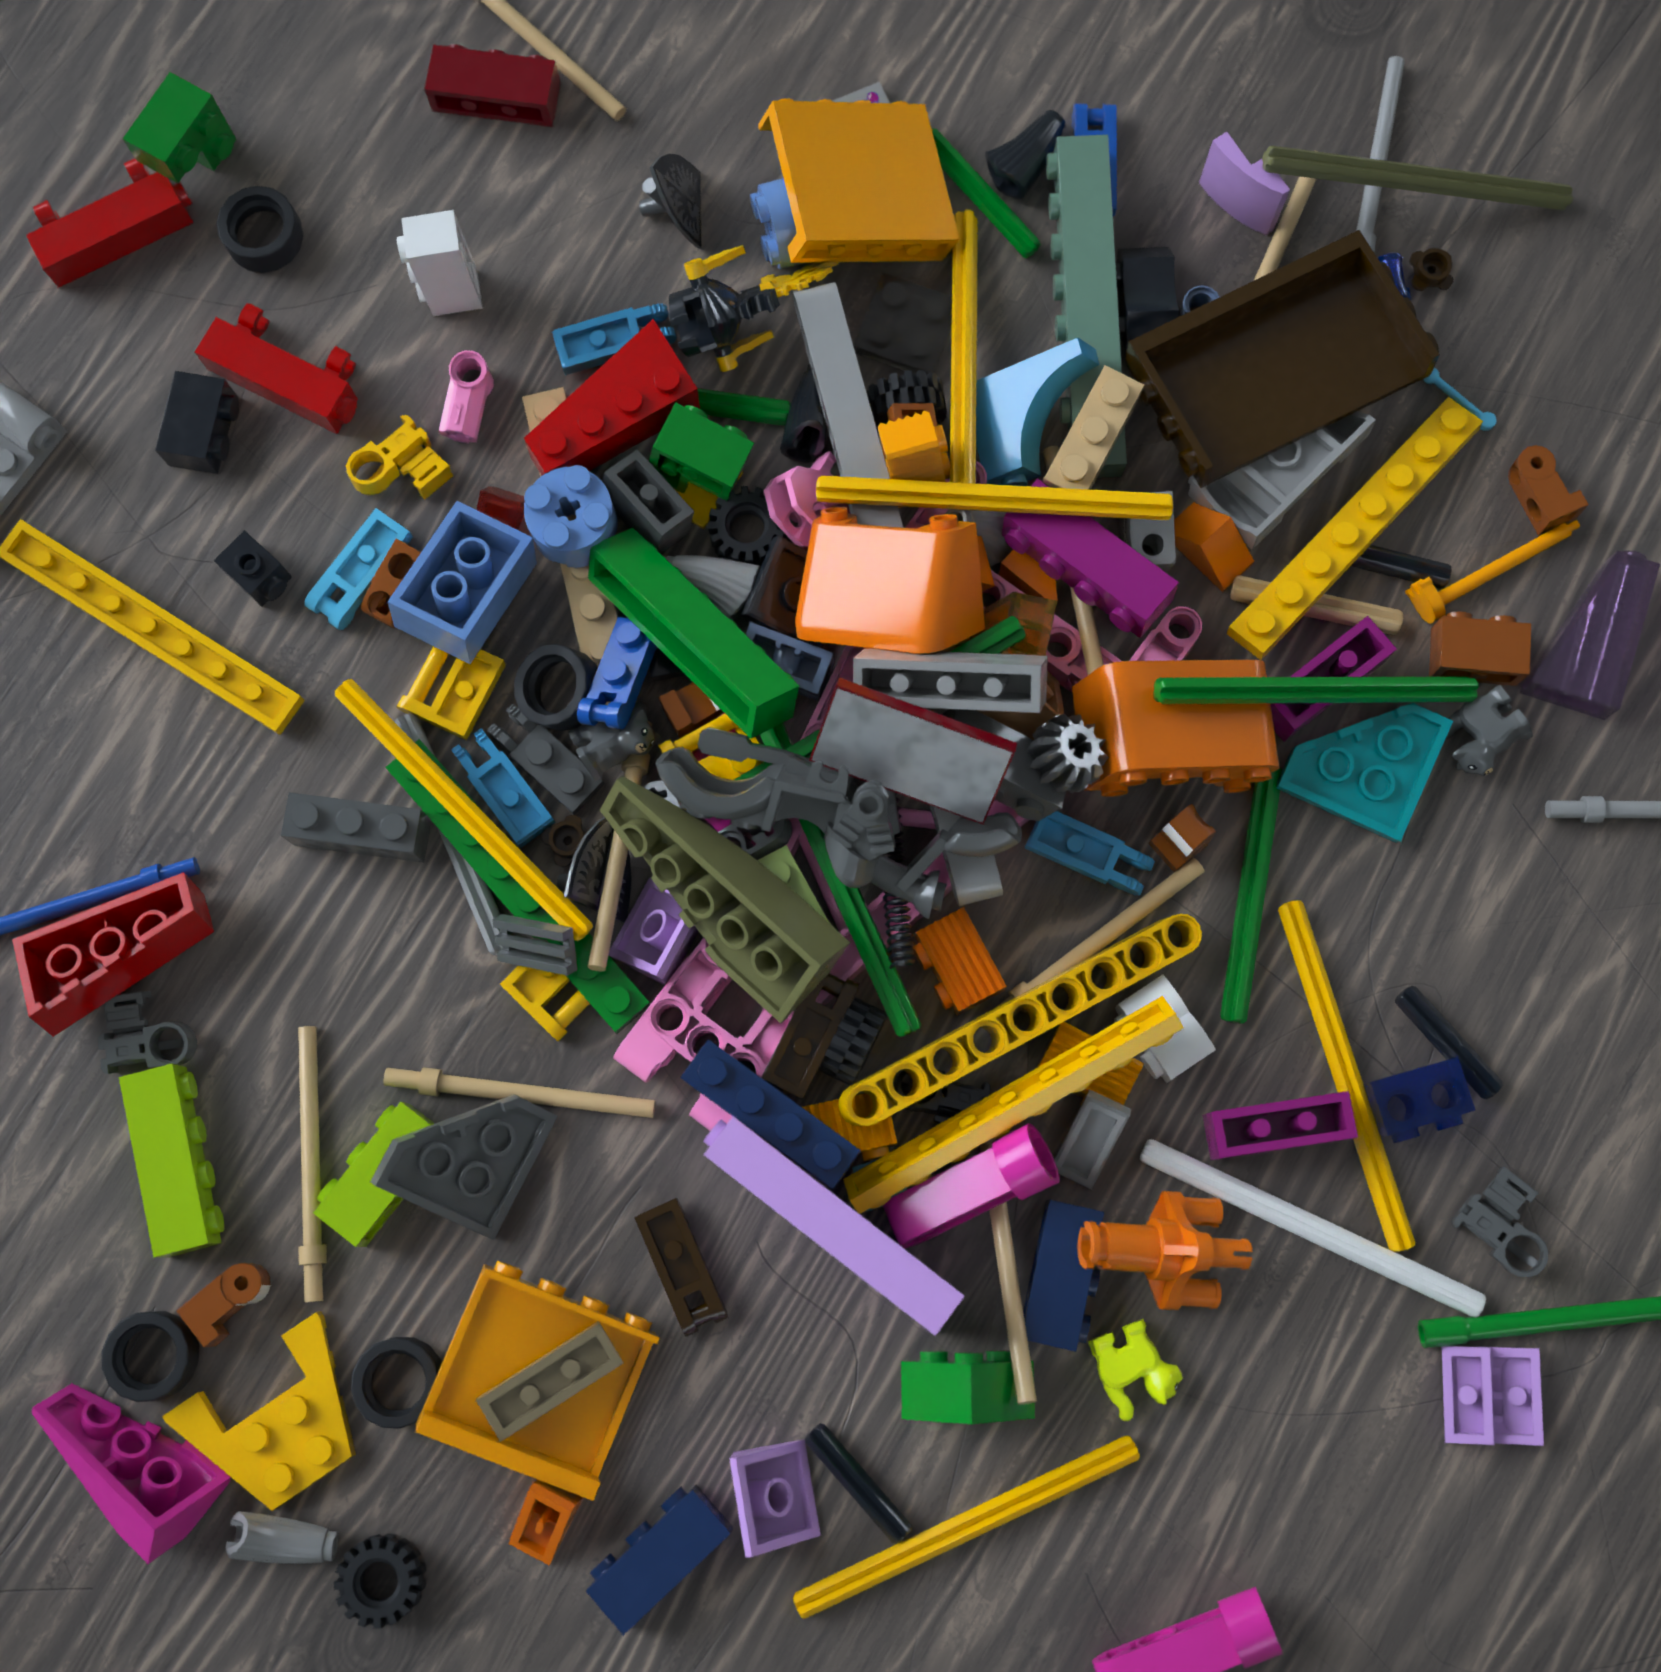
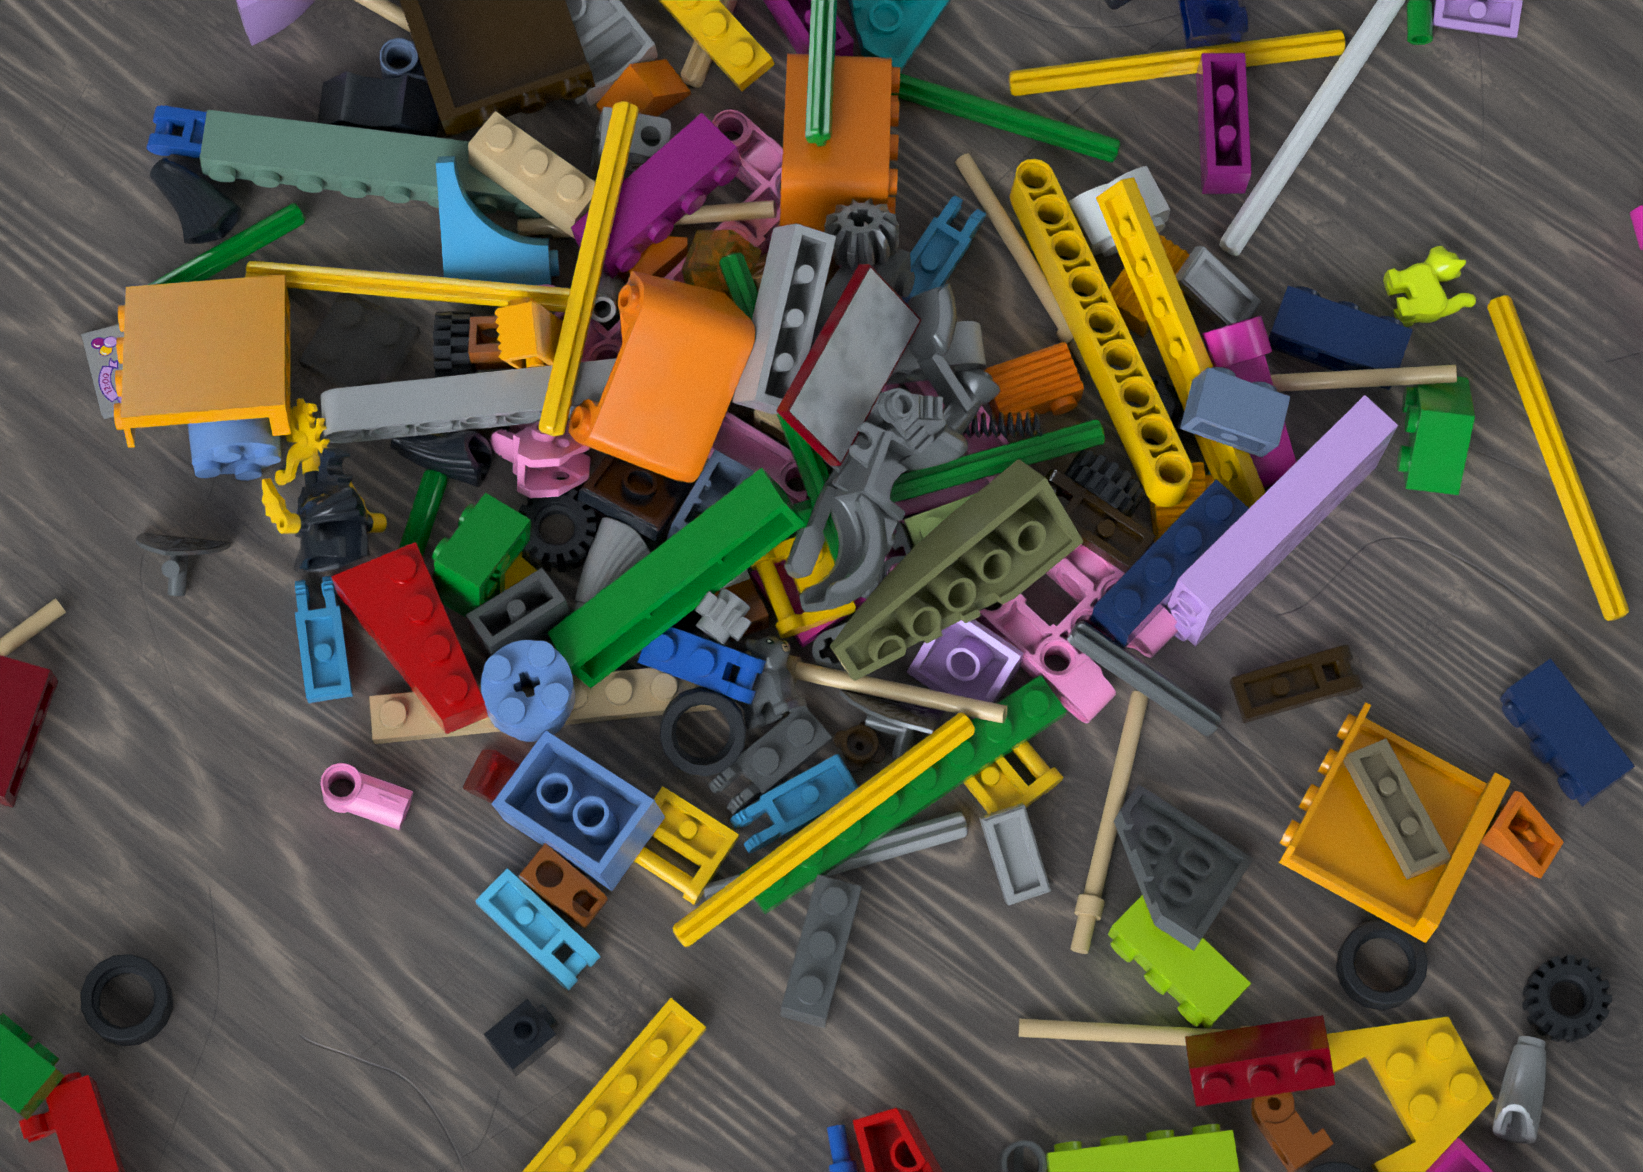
camera: 90 degrees left, 5 degrees down
(197, 422) = (344, 1084): black brick -> none
(277, 1264) = (1259, 1060): none -> dark red brick
(278, 375) = (304, 991): red brick -> none
(403, 450) = (419, 866): yellow piece -> none
(440, 263) = (224, 789): white brick -> none
(472, 1001) = (1015, 854): none -> light grey tile
(535, 952) = (978, 775): dark grey tile -> none
(659, 1107) = (1144, 678): none -> dark grey axle
(660, 682) = (723, 616): none -> light grey gear
(774, 1496) = (1518, 625): lavender slope -> none
(858, 1483) = (1511, 547): black axle -> none
(939, 1164) = (1235, 411): none -> sand blue brick
(1167, 1250) = (1328, 234): orange wheel -> none
(1182, 838) = (938, 163): dark orange leg -> none

